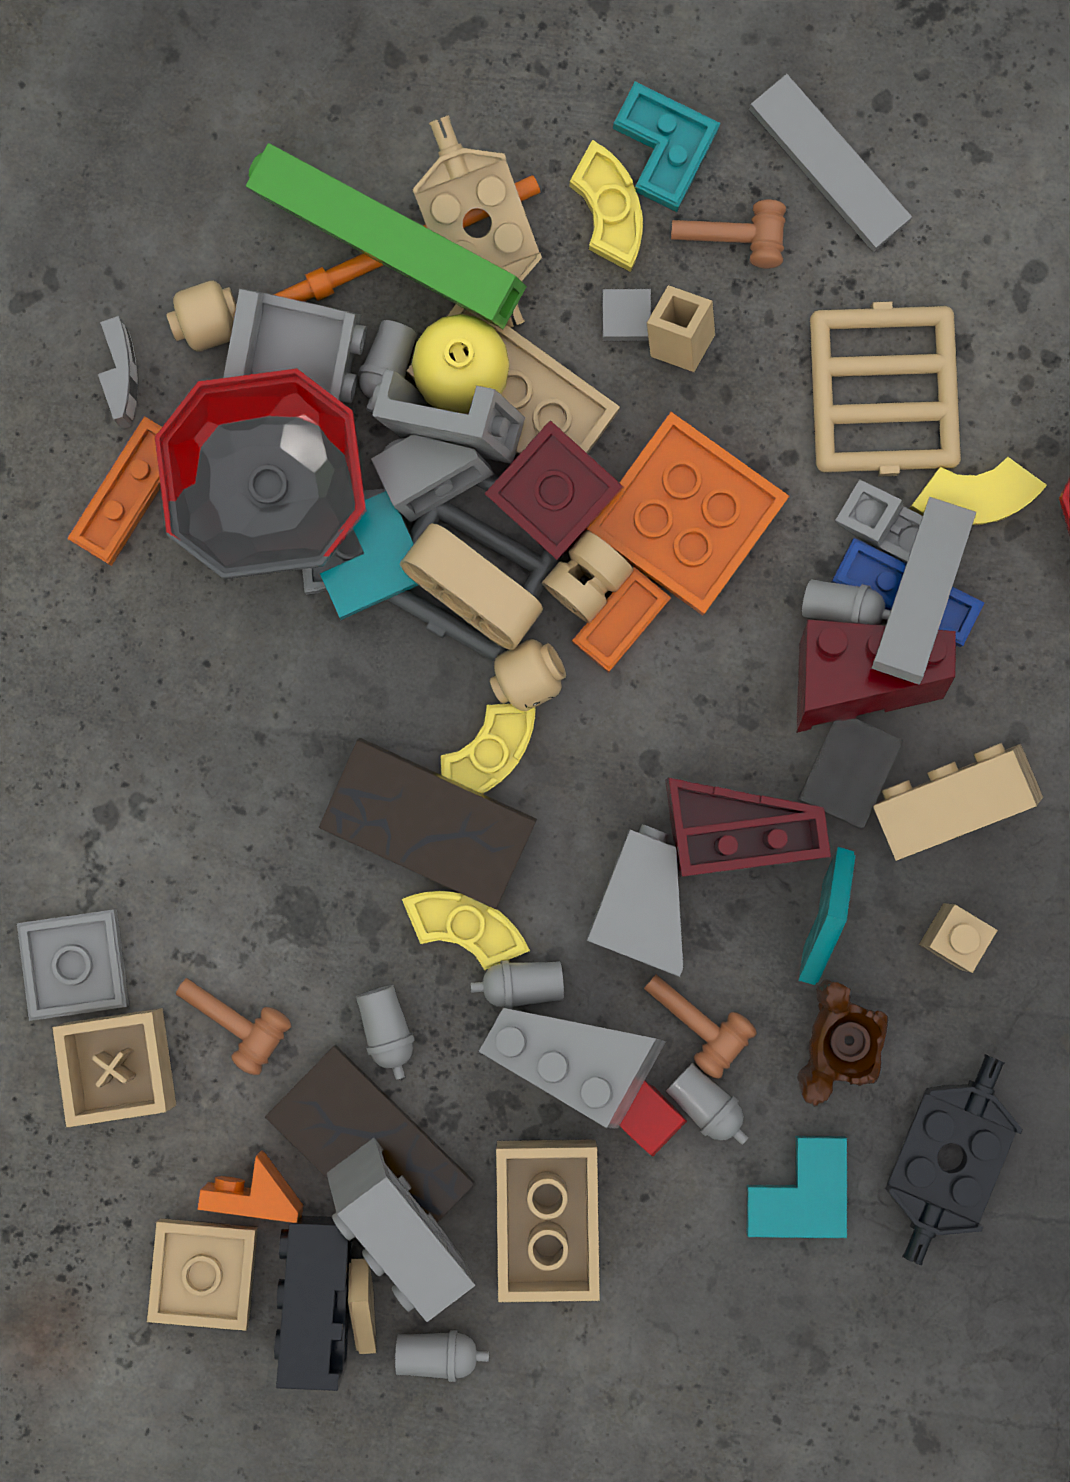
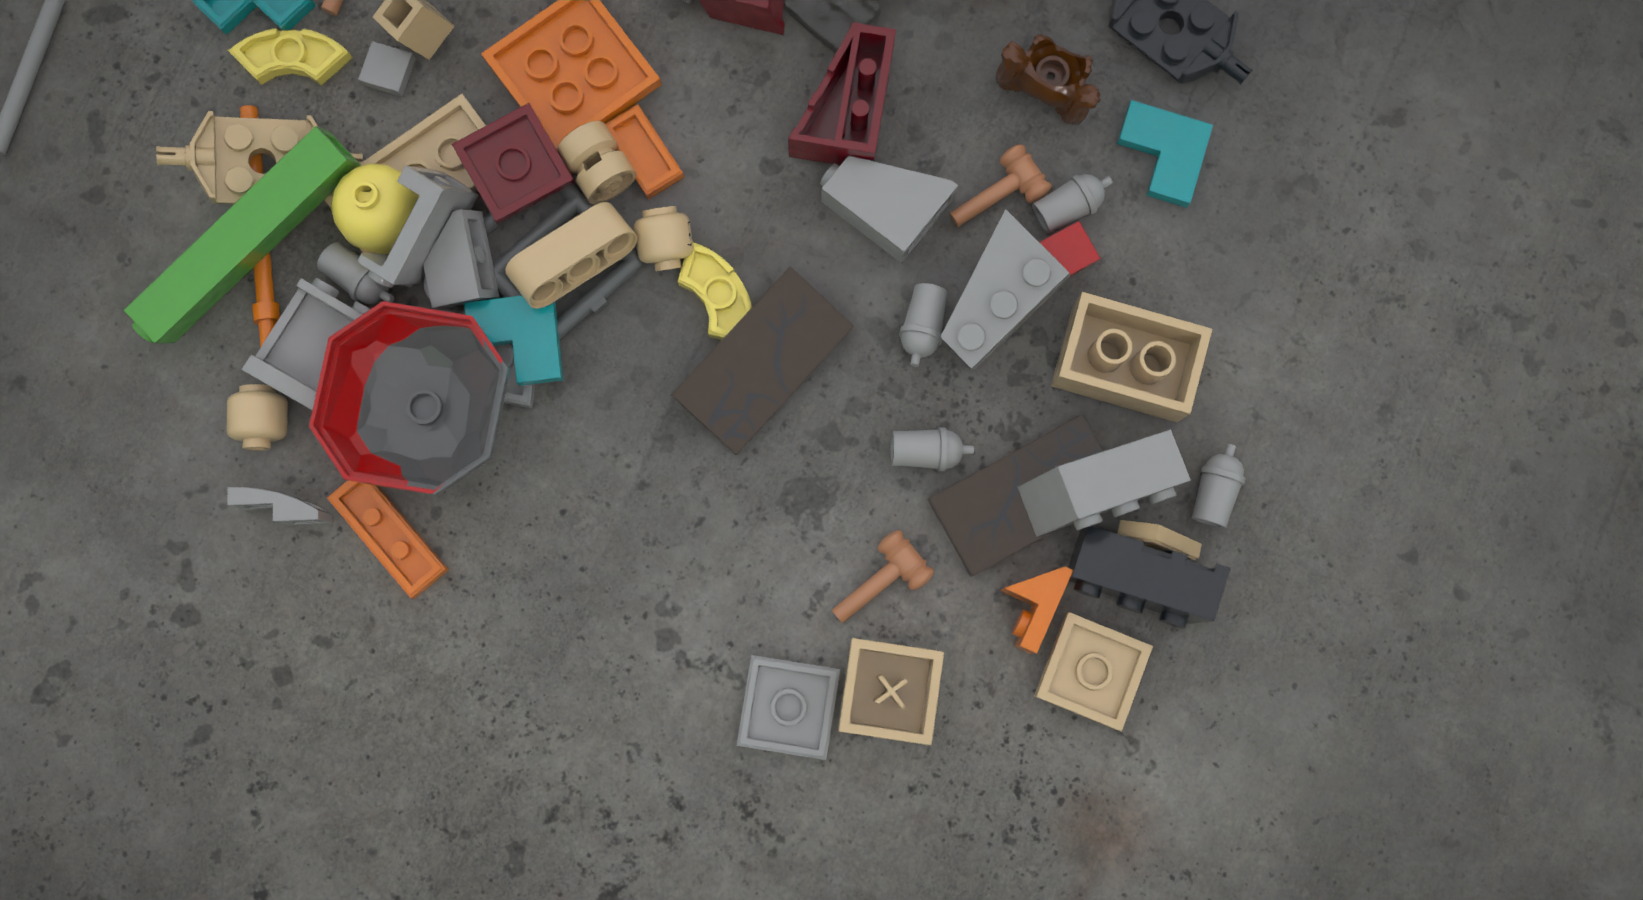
camera: 75 degrees left, 5 degrees down
(466, 922) = (857, 356): light yellow tile -> none
(830, 917) = (947, 46): teal tile -> none

